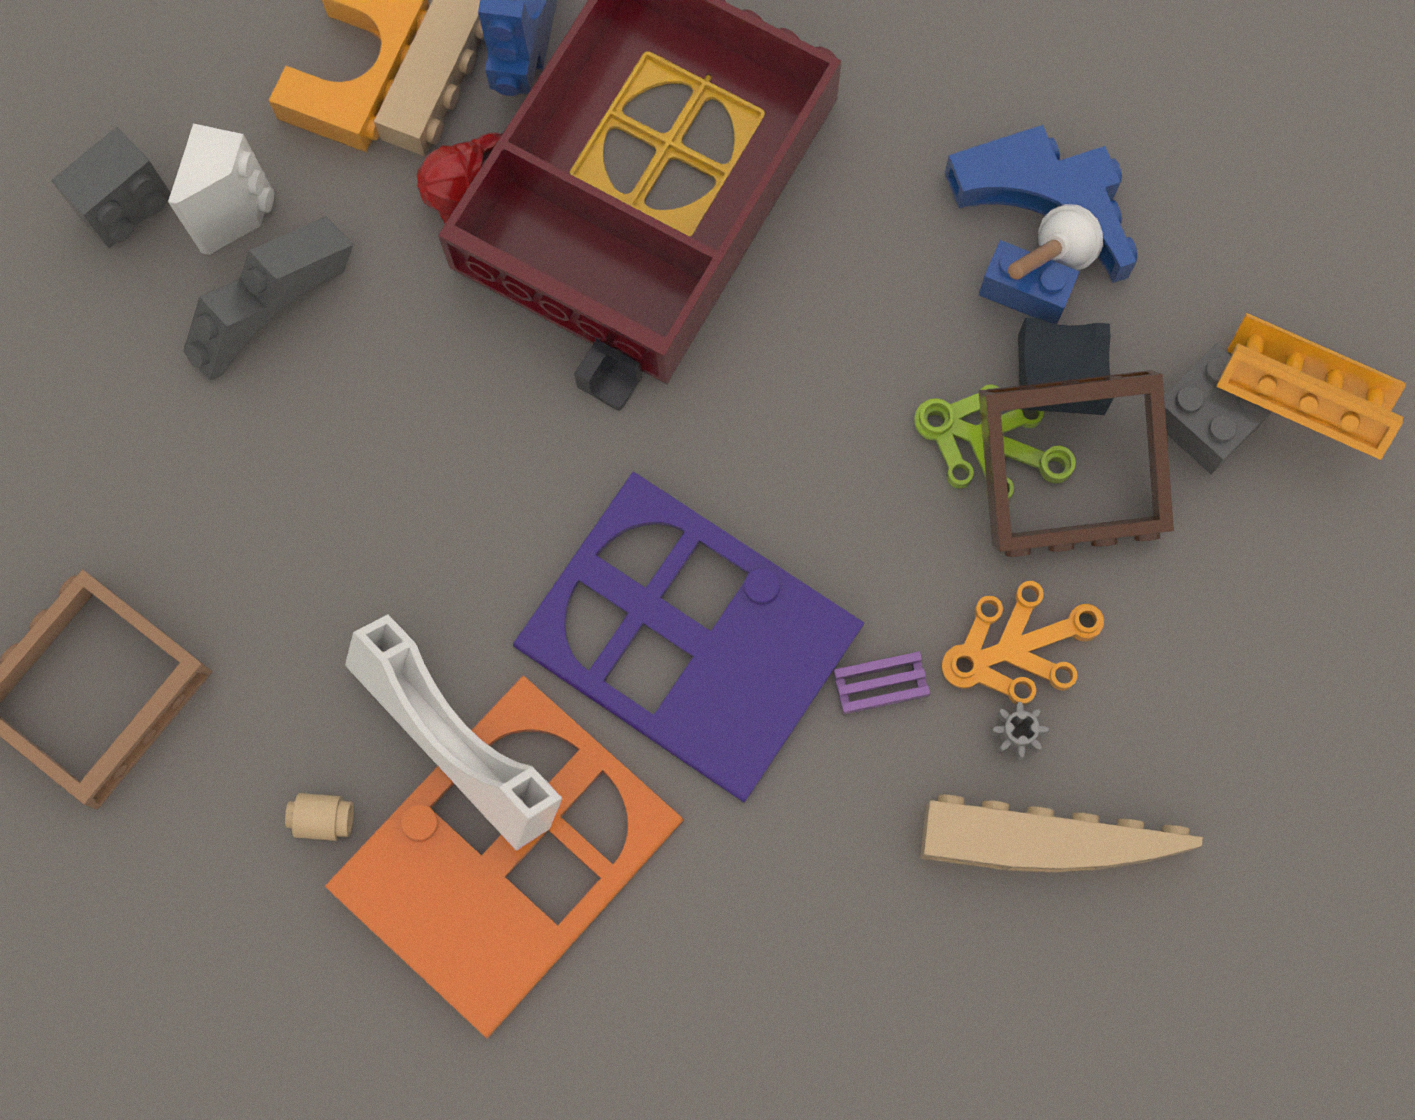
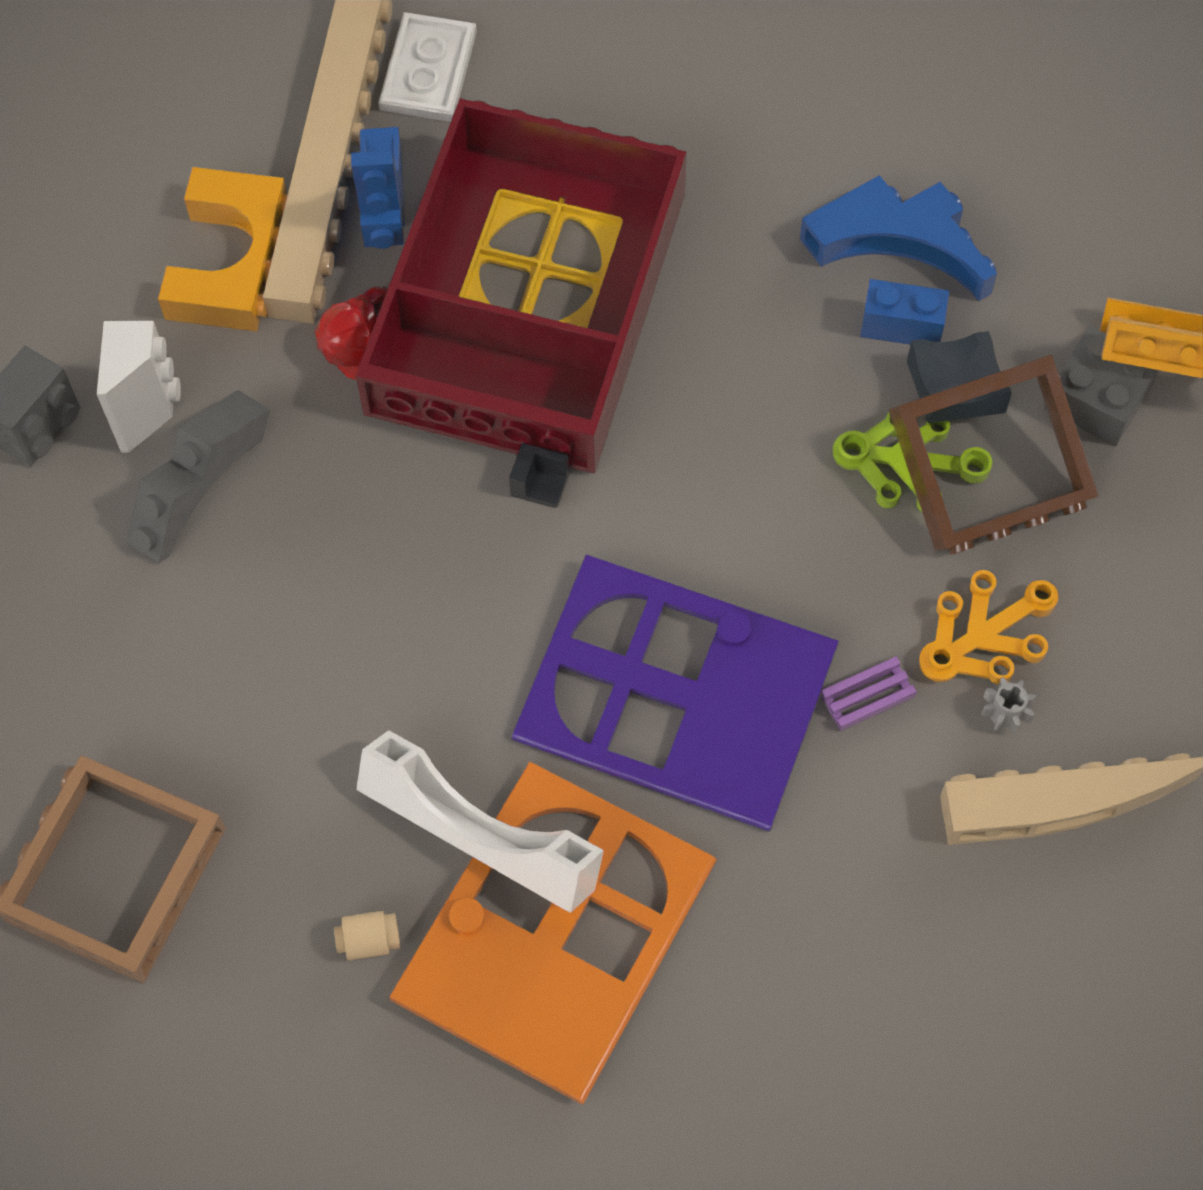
camera: 15 degrees left, 10 degrees down
(1064, 236) = (928, 263): white piece -> none

